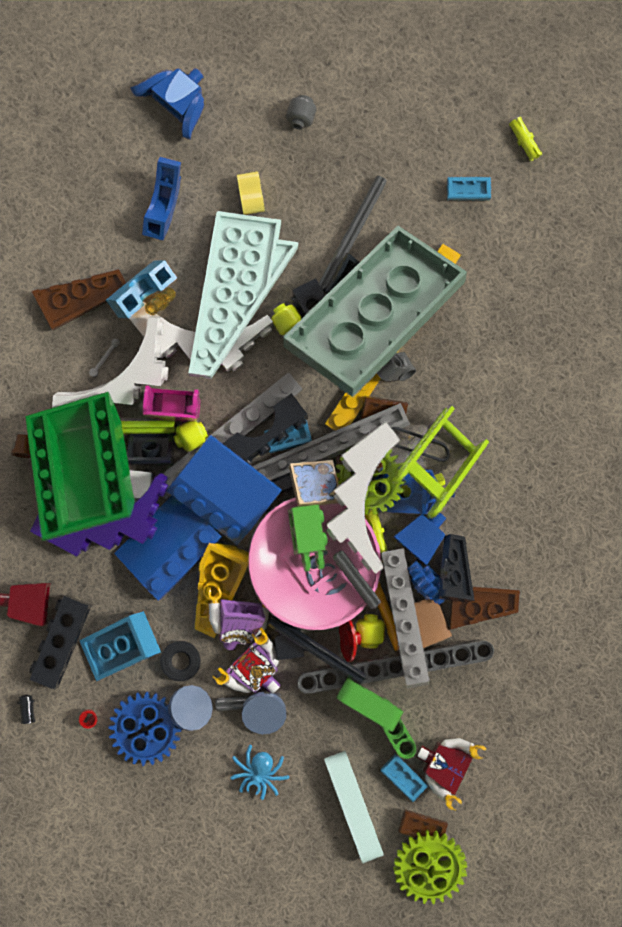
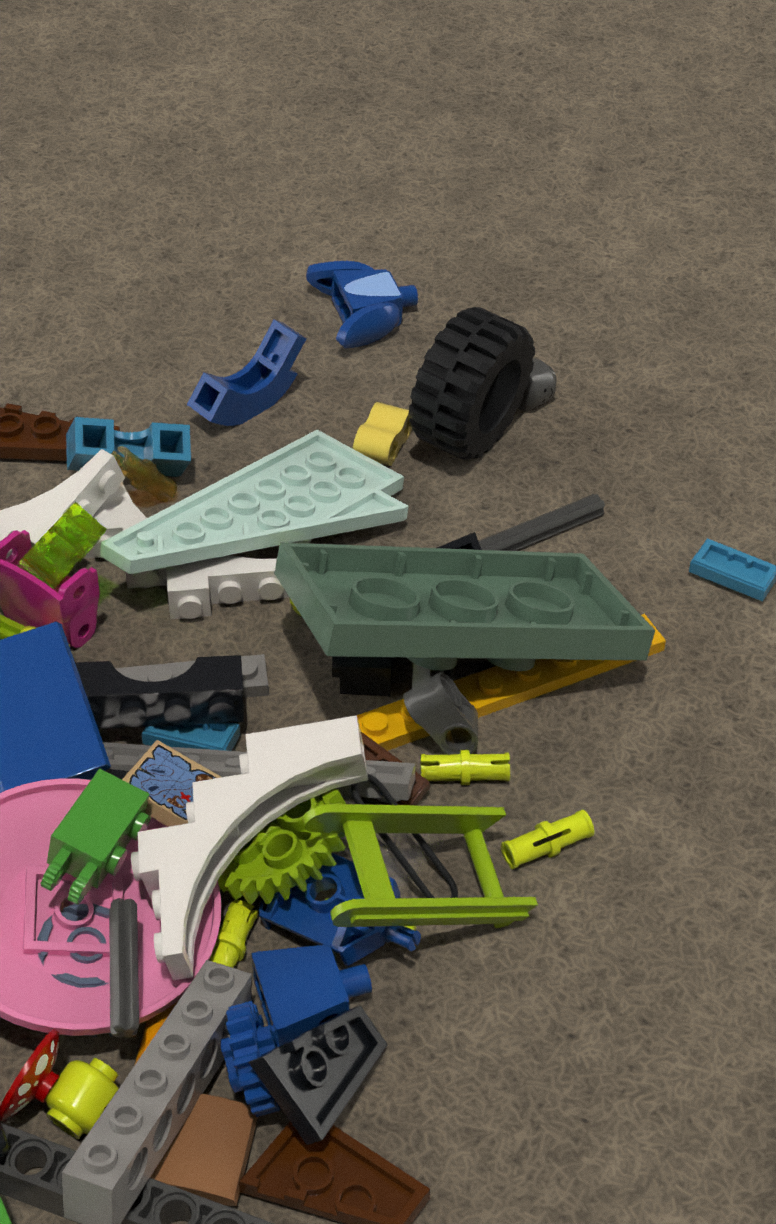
camera: 35 degrees right, 40 degrees down
(172, 389) = (63, 546): none -> clear neon green brick
(290, 151) = (471, 383): none -> black tyre
(414, 382) = (465, 767): none -> neon yellow pin
(470, 400) = (573, 829): none -> neon yellow pin

